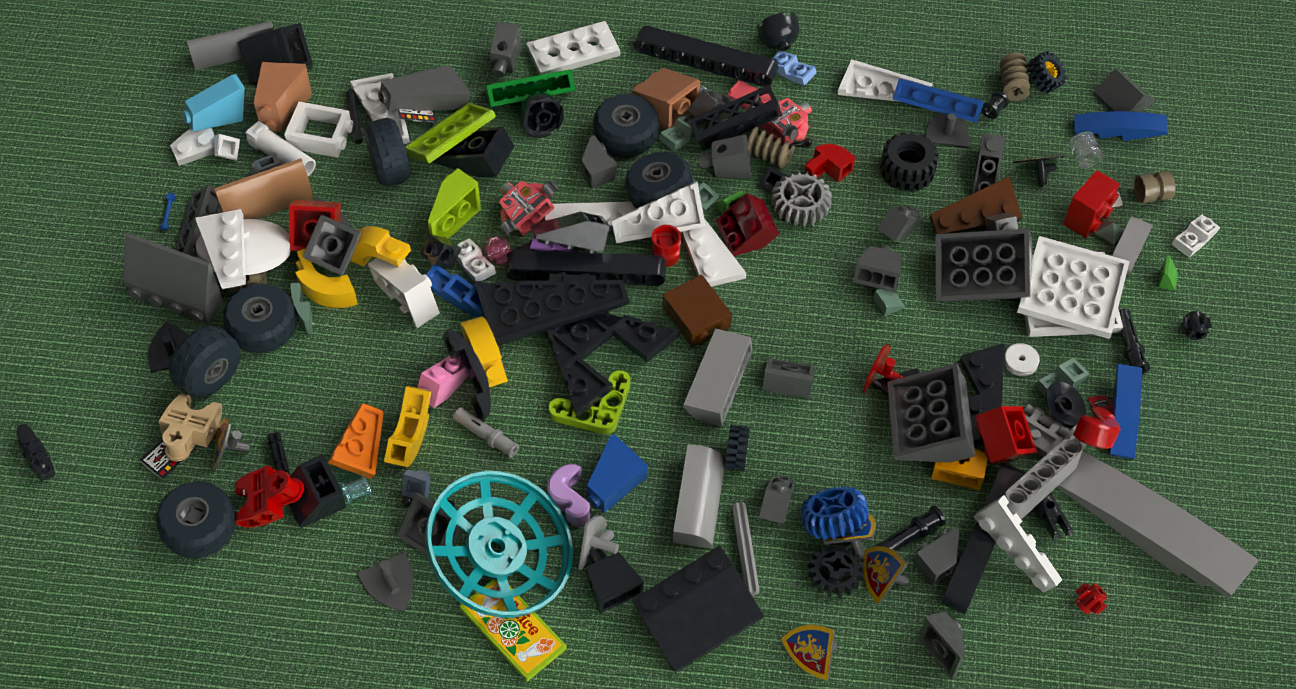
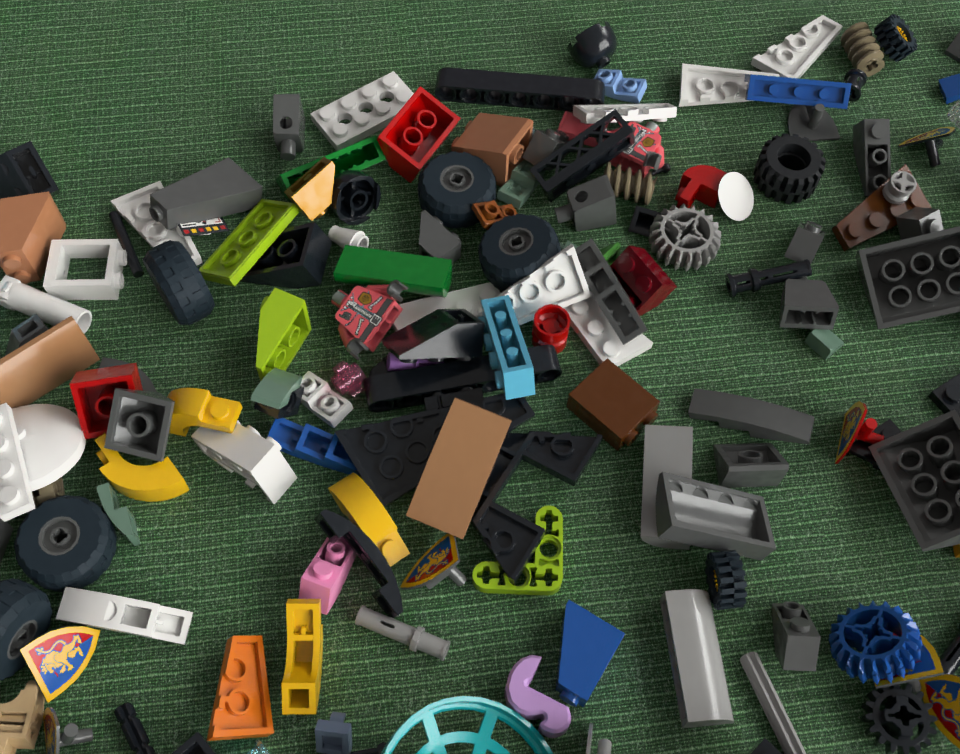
camera: 15 degrees left, 5 degrees up
(238, 391) = (59, 657): none -> shield
(291, 374) = (124, 615): none -> white slope
(439, 240) = (276, 388): none -> sand green slope
(509, 102) = (314, 189): none -> slope
(528, 392) = (436, 565): none -> shield
(529, 148) = (346, 236): none -> white cone
(559, 324) = (458, 468): none -> medium nougat slope
(570, 180) = (374, 266): none -> green brick
(605, 74) = (416, 133): none -> red slope
(621, 247) = (507, 348): none -> medium azure brick
(645, 146) = (490, 212): none -> dark orange slope
(720, 225) = (609, 293): none -> dark grey slope
(742, 402) = (712, 517): none -> dark grey slope
(788, 90) = (630, 112): none -> white wing
(805, 341) = (753, 415): none -> dark grey slope
(855, 175) = (735, 196): none -> white sticker
(886, 241) = (753, 280): none -> black pin
(960, 67) = (800, 50): none -> white wing
(989, 189) = (899, 187): none -> light grey wheel

